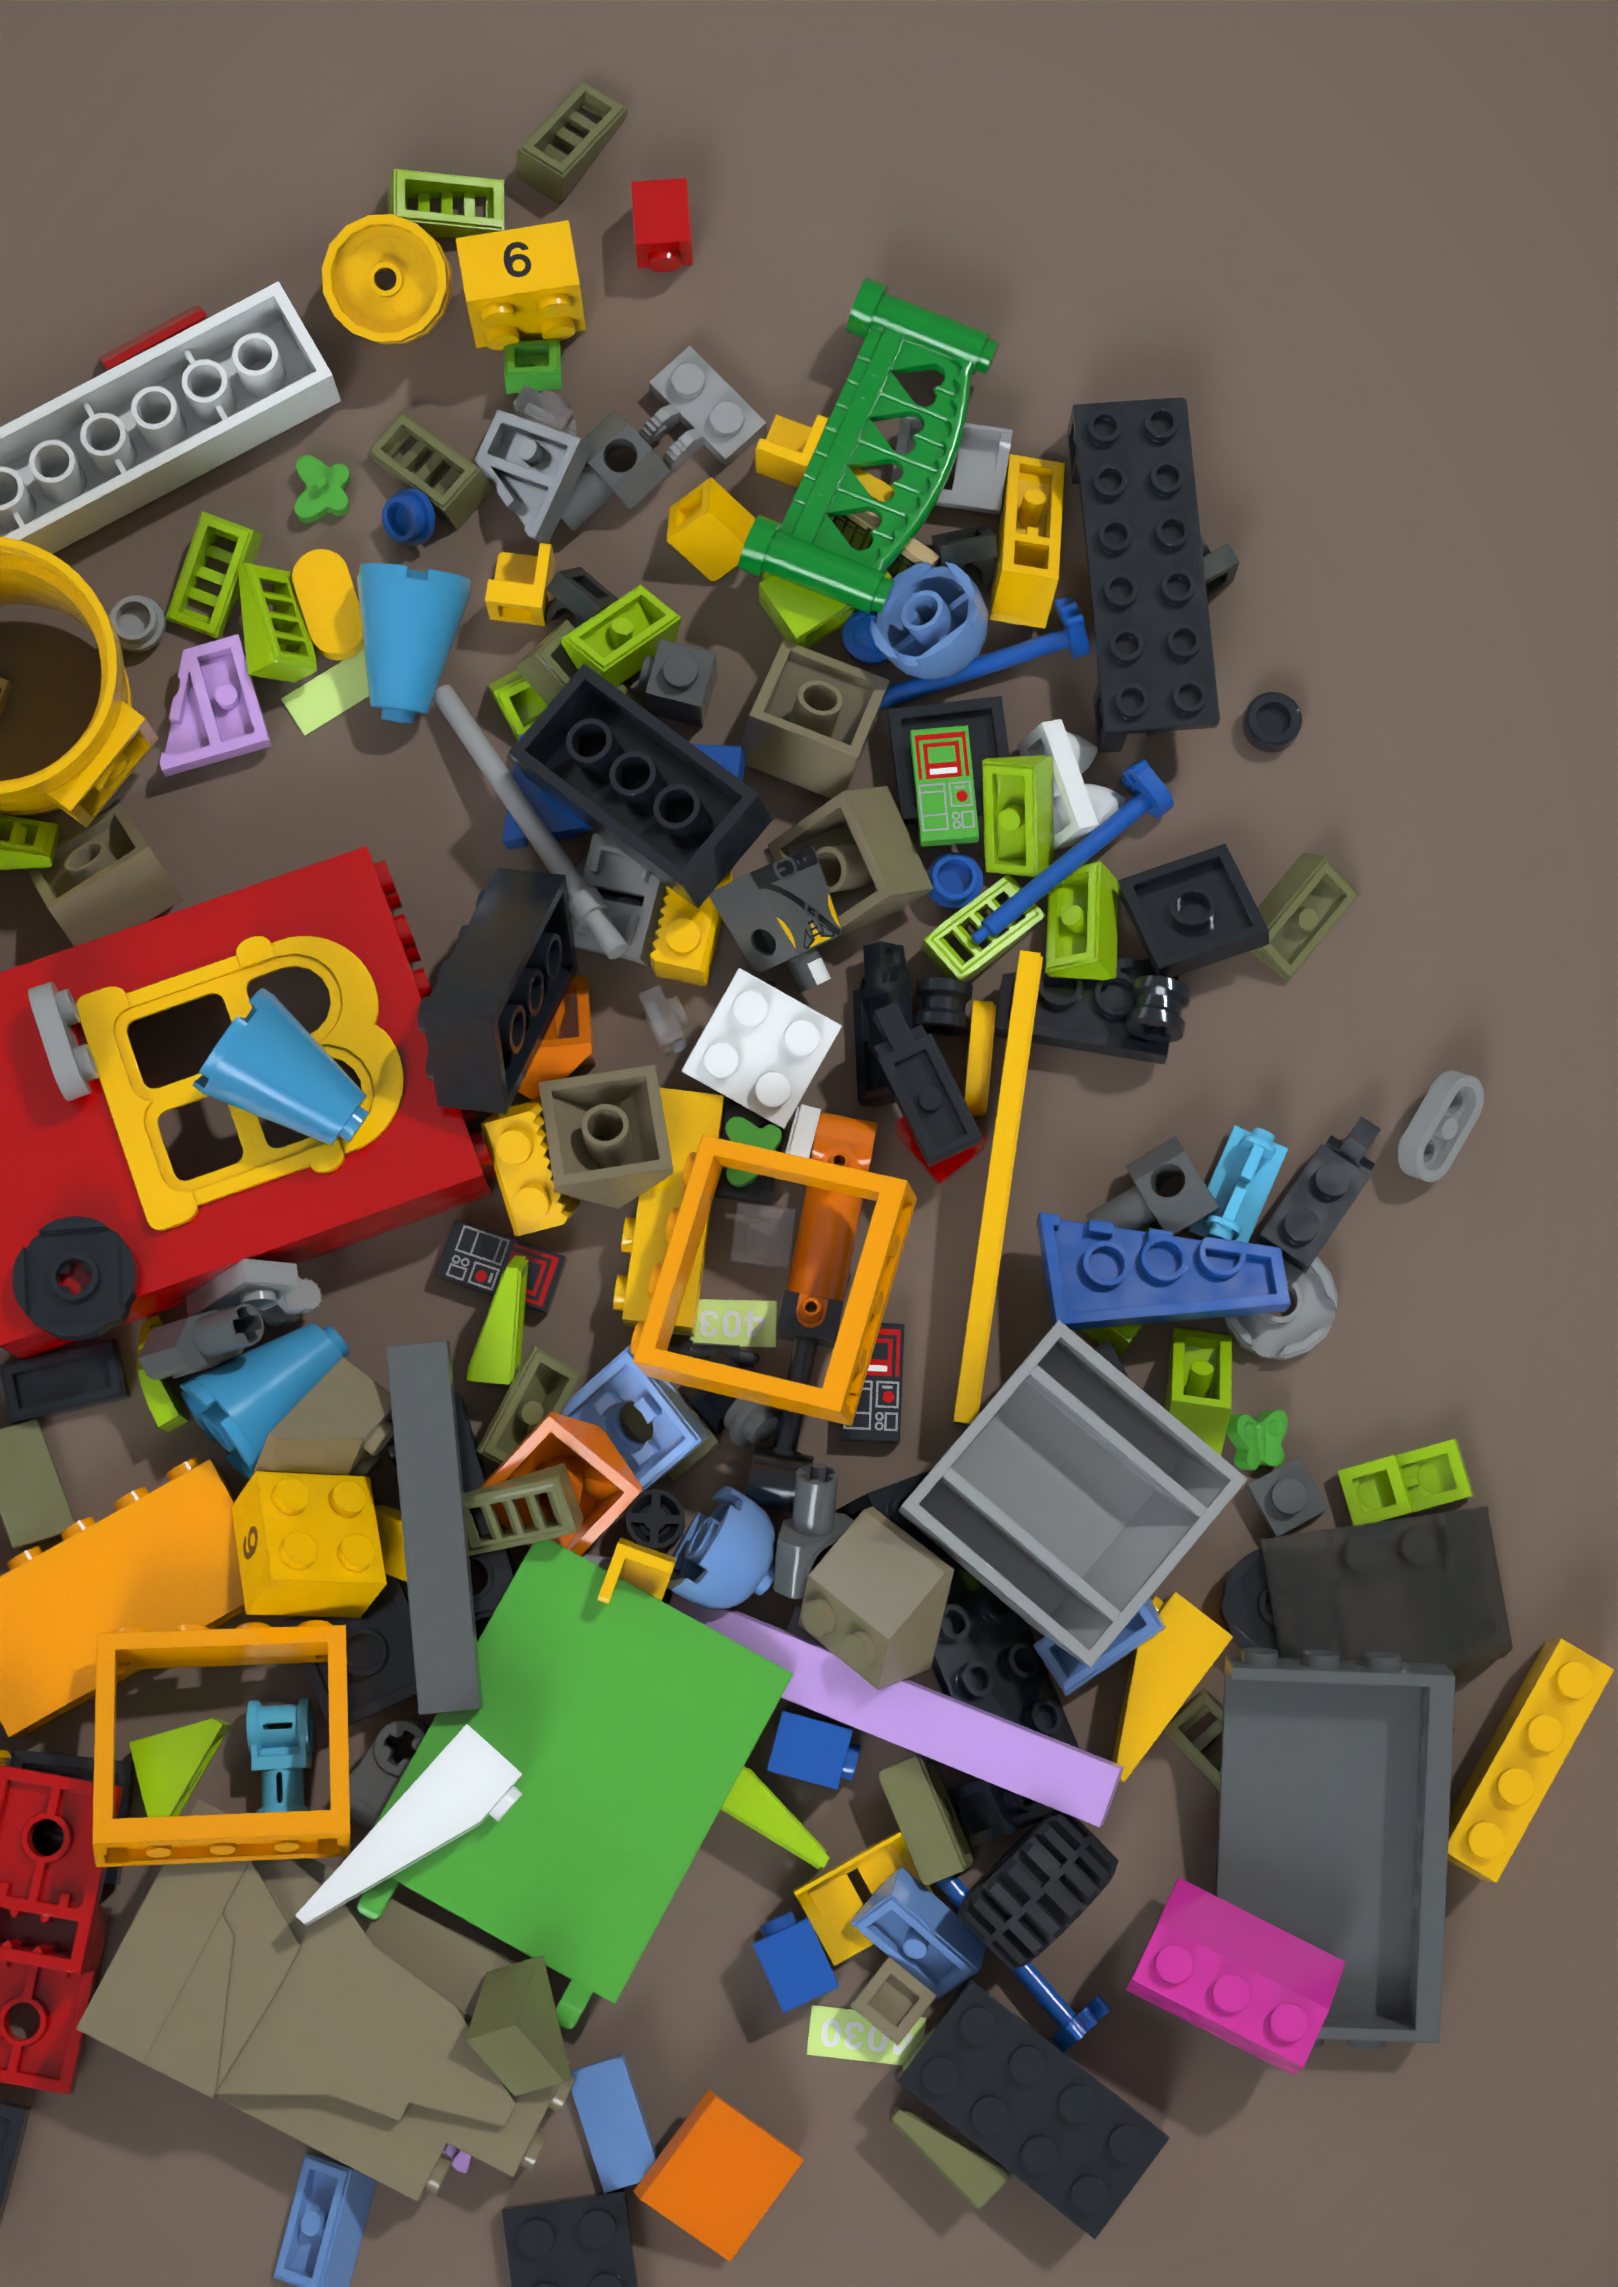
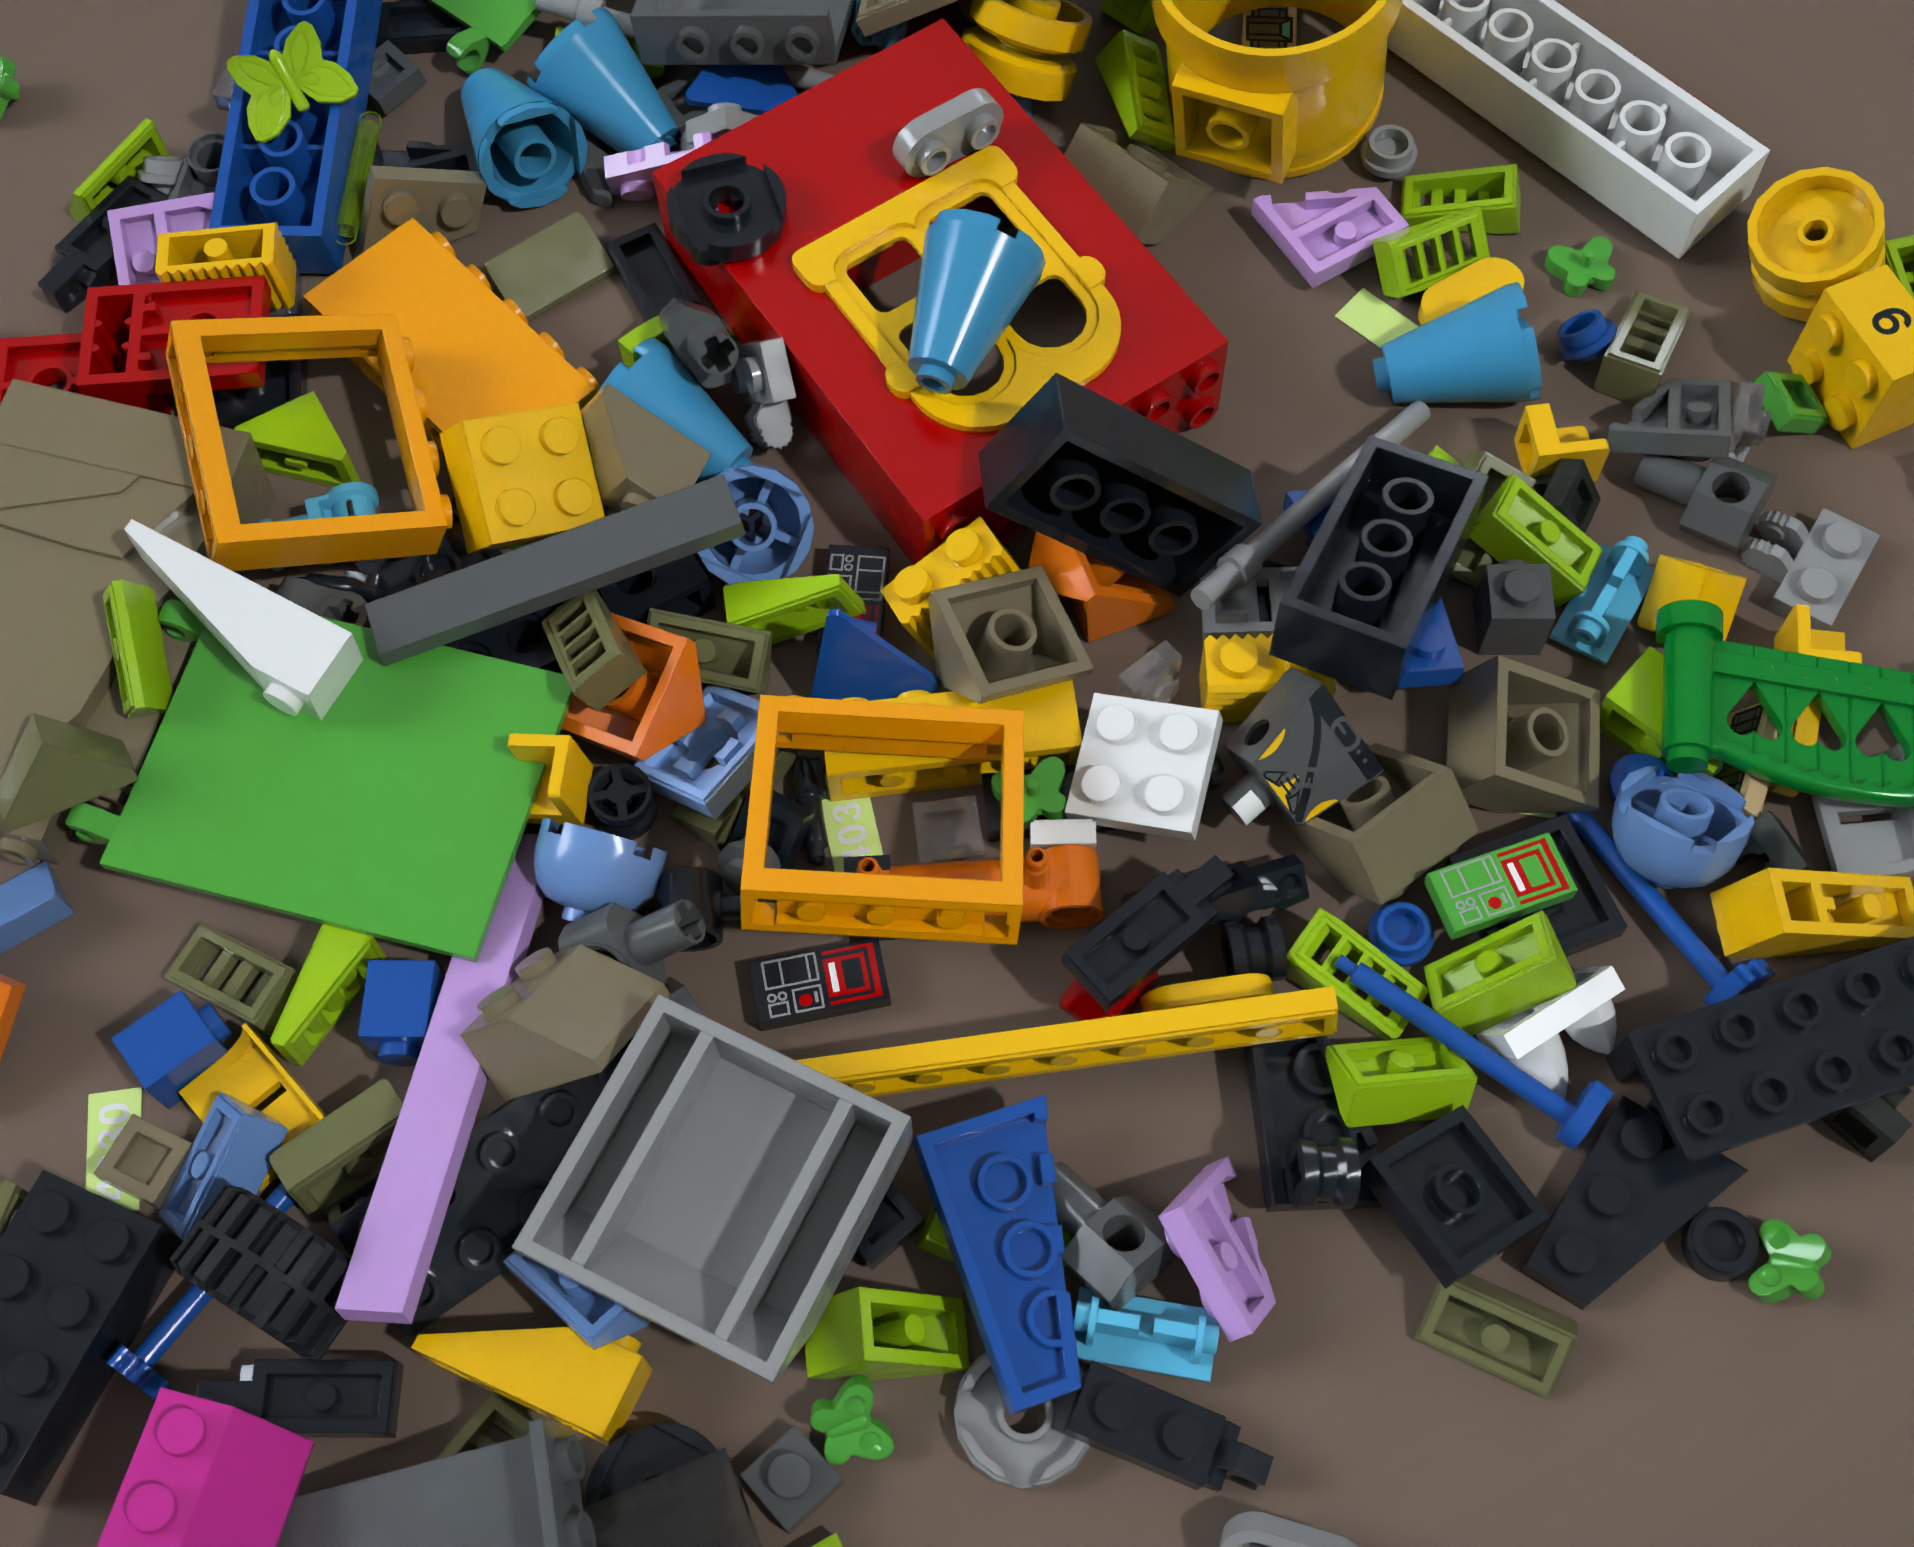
camera: 80 degrees right, 15 degrees down
(361, 1735) = (361, 583): none -> black piece
(408, 1315) = (780, 540): none -> medium blue cylinder
(408, 1942) = (137, 648): none -> lime slope
(588, 1273) = (864, 665): none -> blue piece
(706, 616) = (1601, 614): none -> medium azure hinge
(773, 1865) = (265, 1001): none -> olive slope
(1134, 1897) = (317, 1395): none -> black hinge
(1192, 1109) = (1219, 1251): none -> lavender wing
(1225, 787) = (1622, 1205): none -> black wing
(1304, 675) = (1791, 1264): none -> bright green piece

